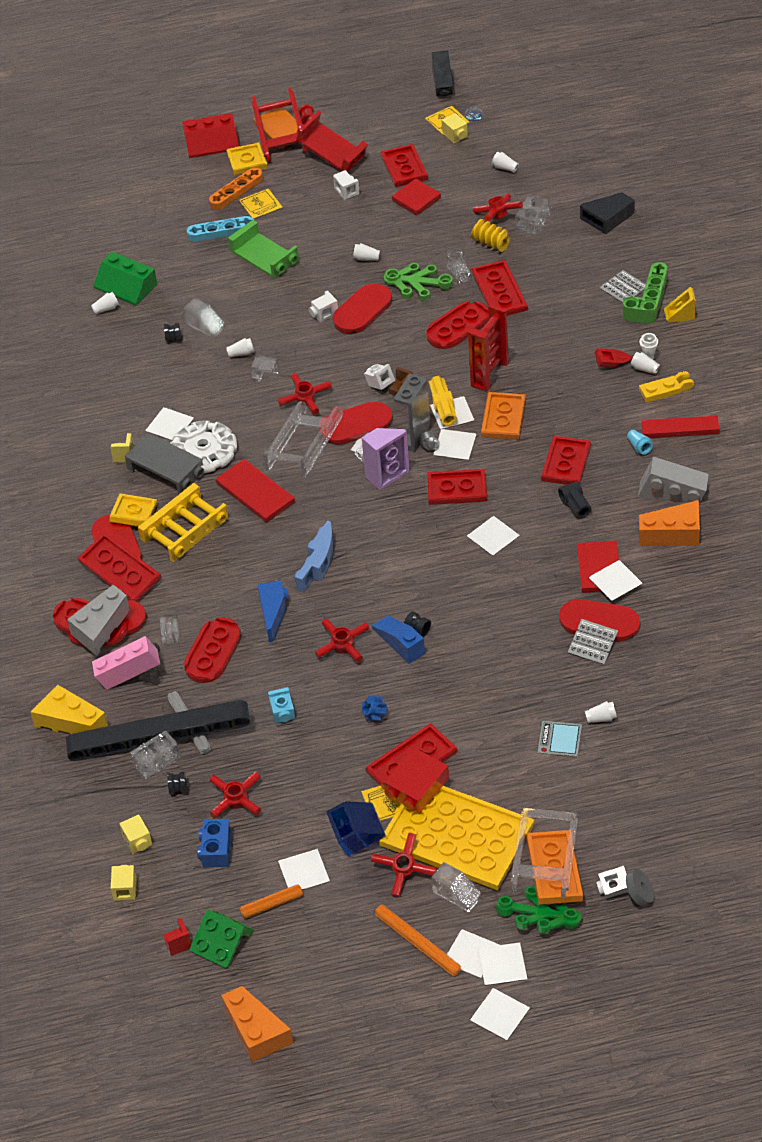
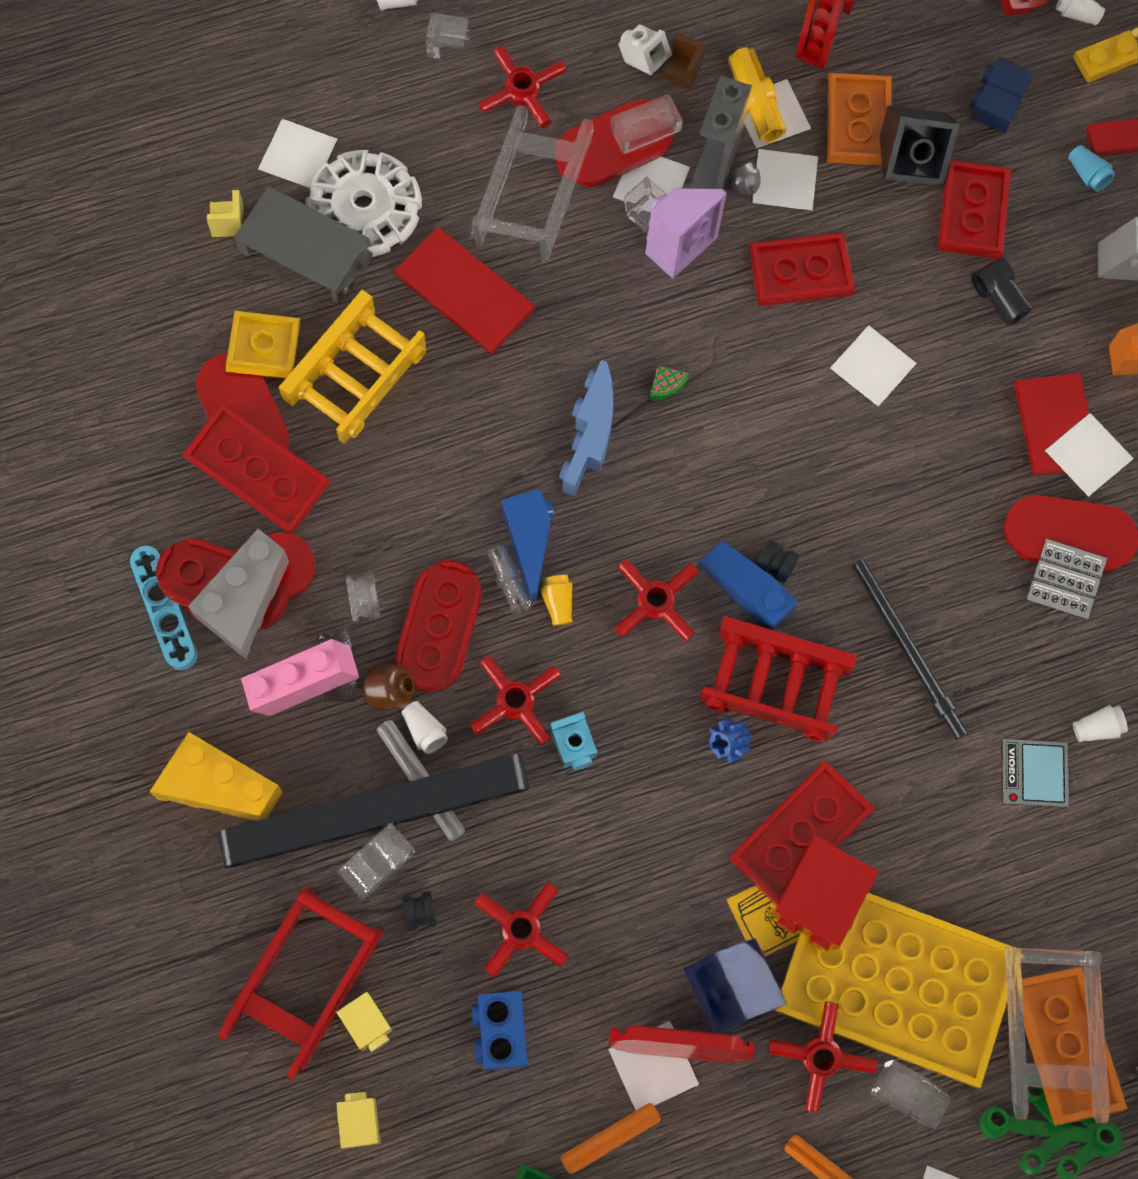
camera: 15 degrees left, 25 degrees up
(52, 635) = (159, 609): none -> medium azure beam
(101, 841) = (280, 1020): none -> red piece
(176, 673) = (388, 687): none -> reddish brown head
(195, 696) = (424, 728): none -> white cone
(250, 684) = (523, 712): none -> red bar
(257, 627) = (509, 579): none -> clear pin
(284, 637) = (558, 598): none -> yellow cone
(318, 849) = (682, 1044): none -> red tile
(367, 537) = (667, 383): none -> green tile
(373, 411) = (646, 123): none -> clear piece
(414, 665) = (801, 655): none -> red fence
(506, 699) = (942, 705): none -> black bar
(533, 426) = (917, 145): none -> black slope
(590, 404) = (1001, 94): none -> dark blue brick

